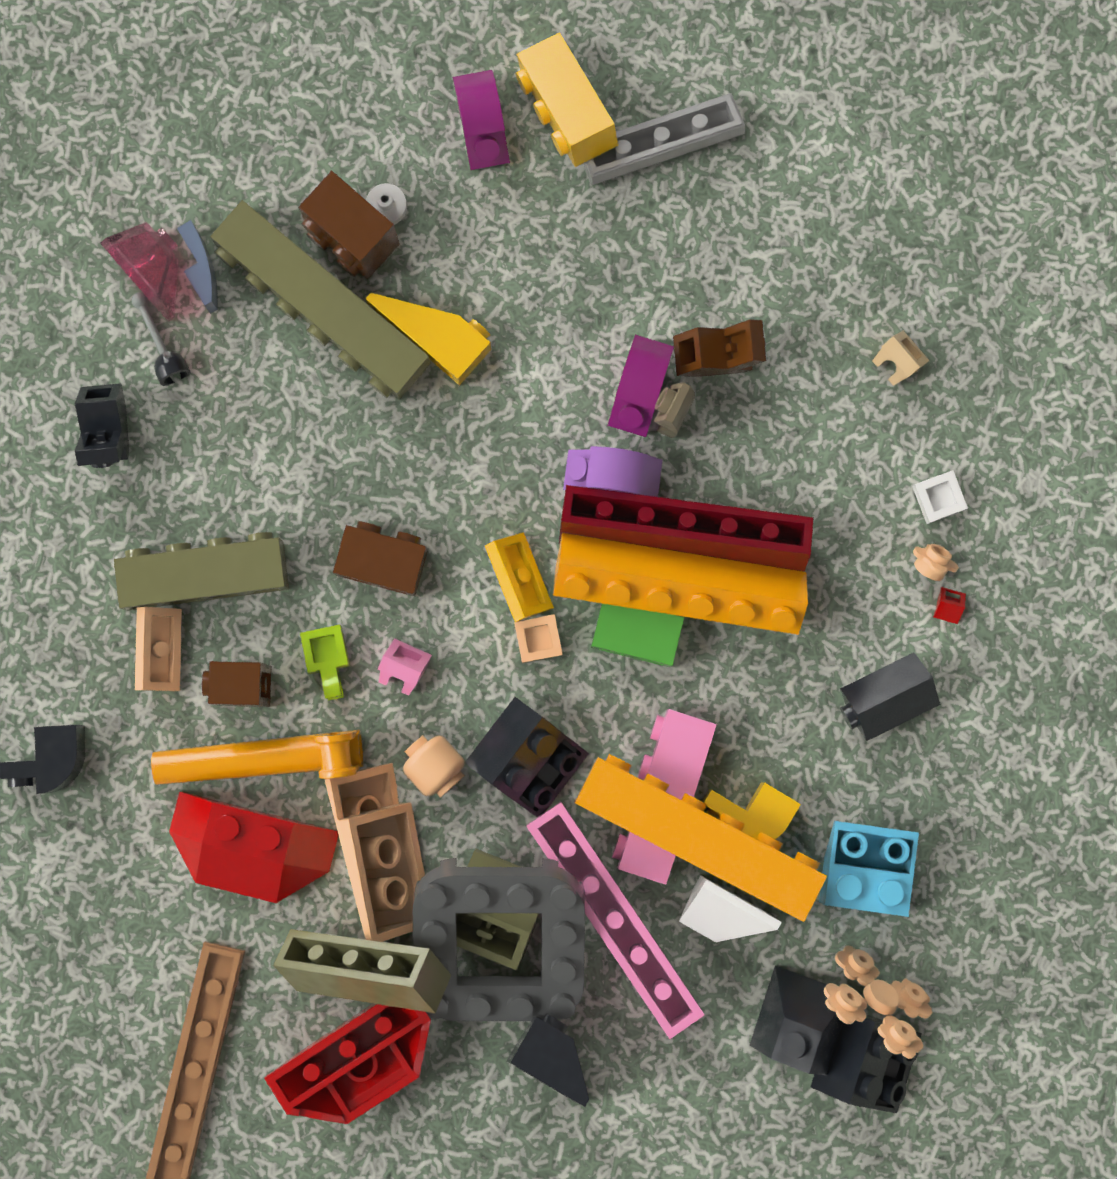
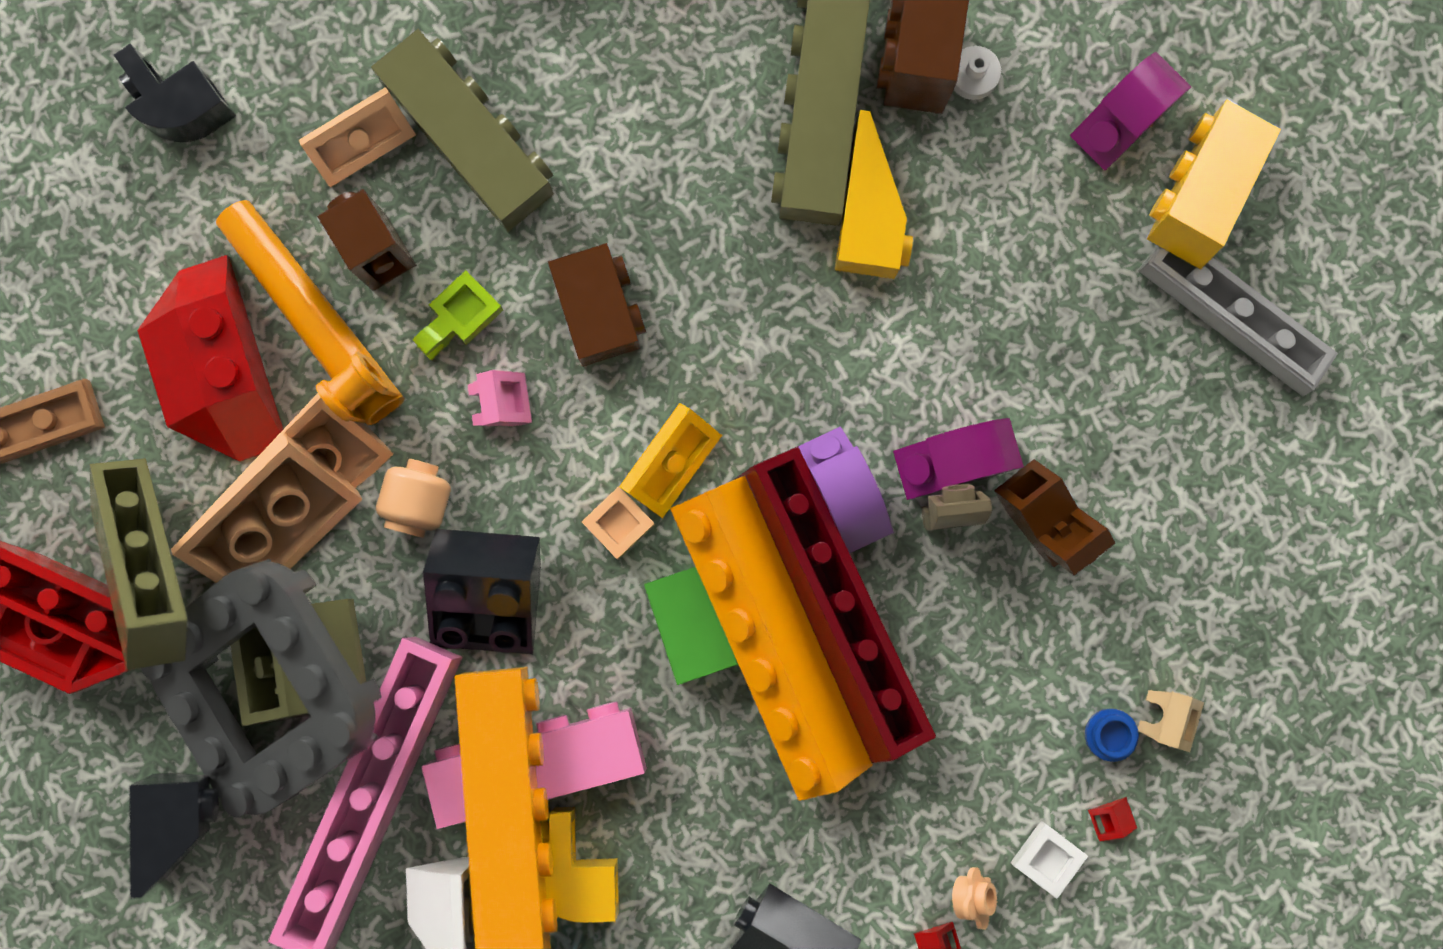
camera: 60 degrees right, 0 degrees up
(885, 404) = (1111, 735): none -> blue plate
(943, 437) = (1116, 819): none -> red piece

